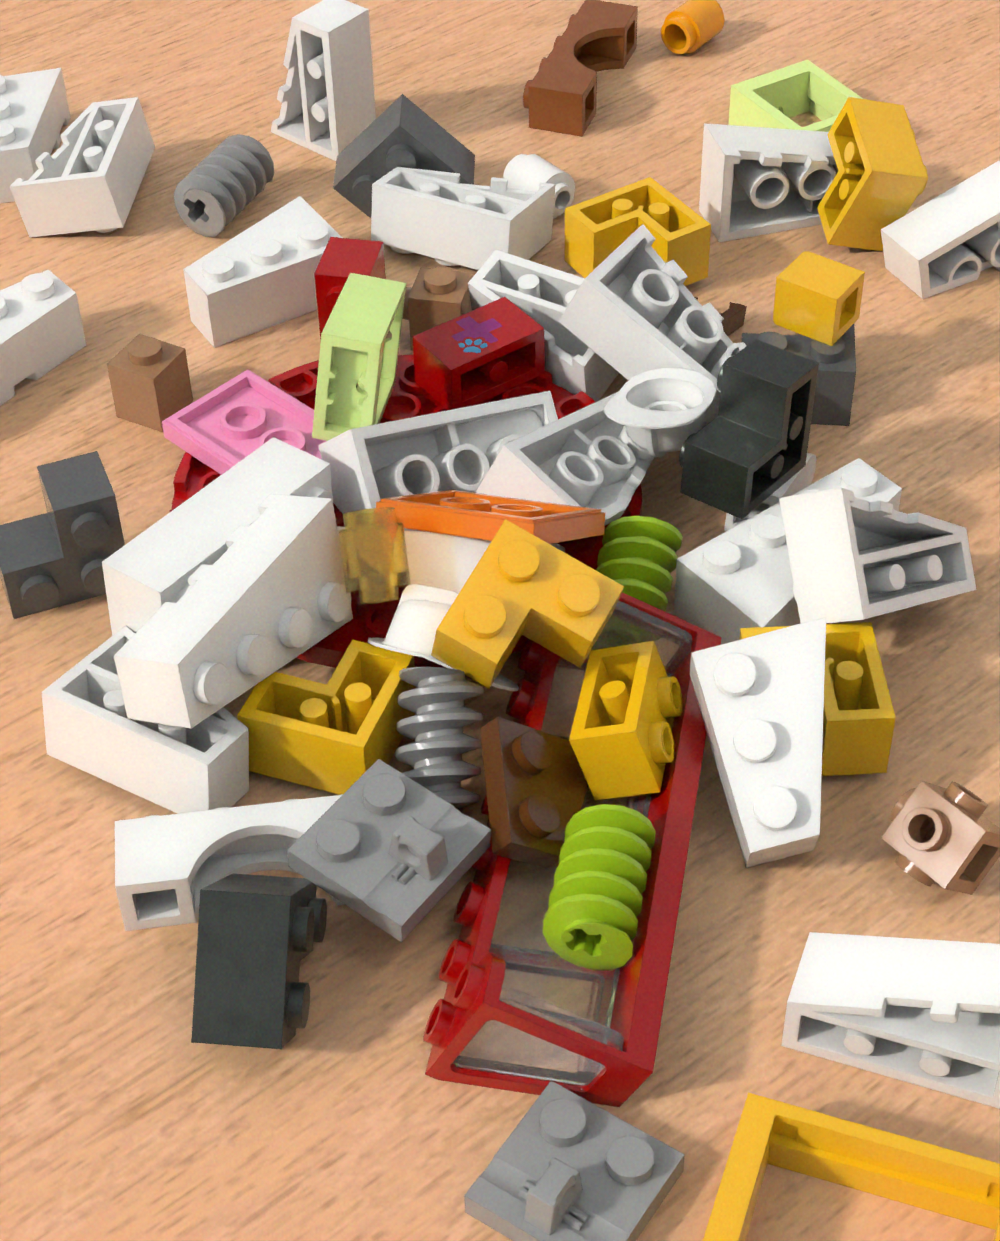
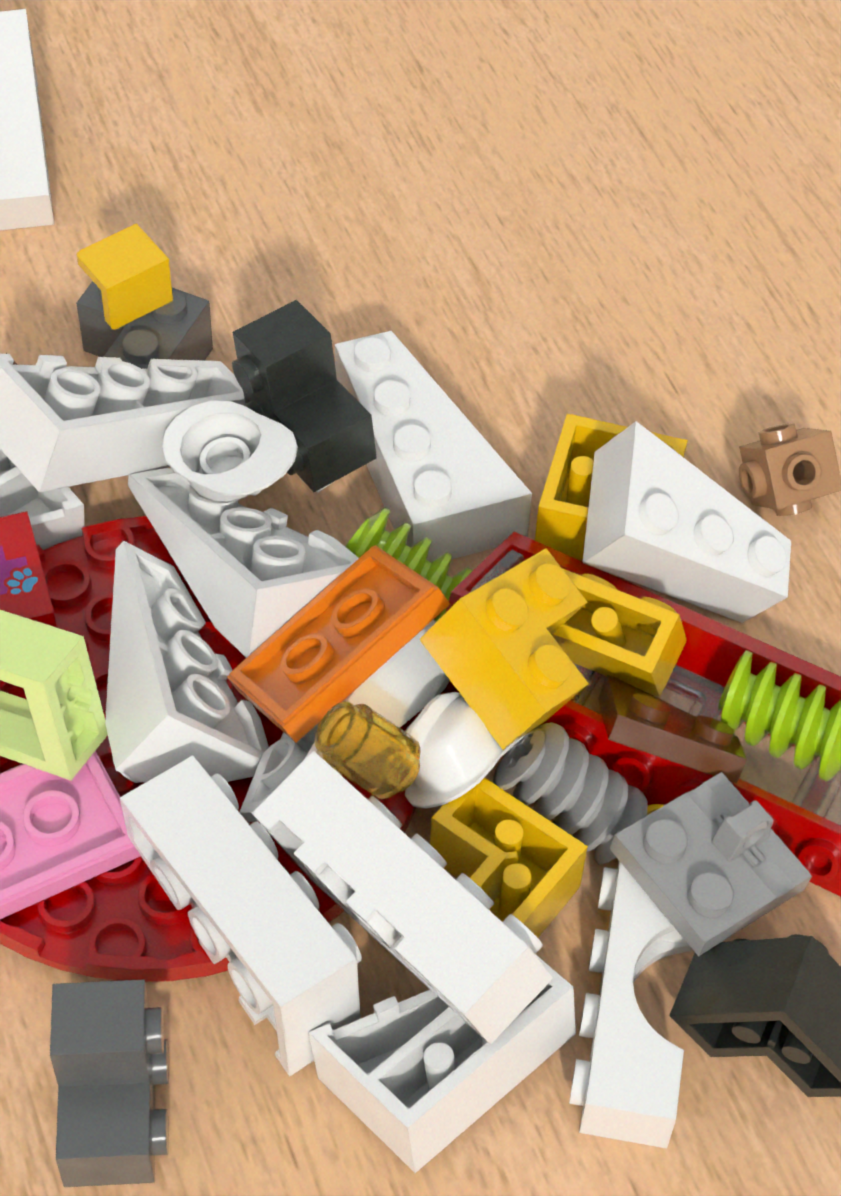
camera: 75 degrees left, 10 degrees up
(868, 559) = (504, 389): white wedge -> none

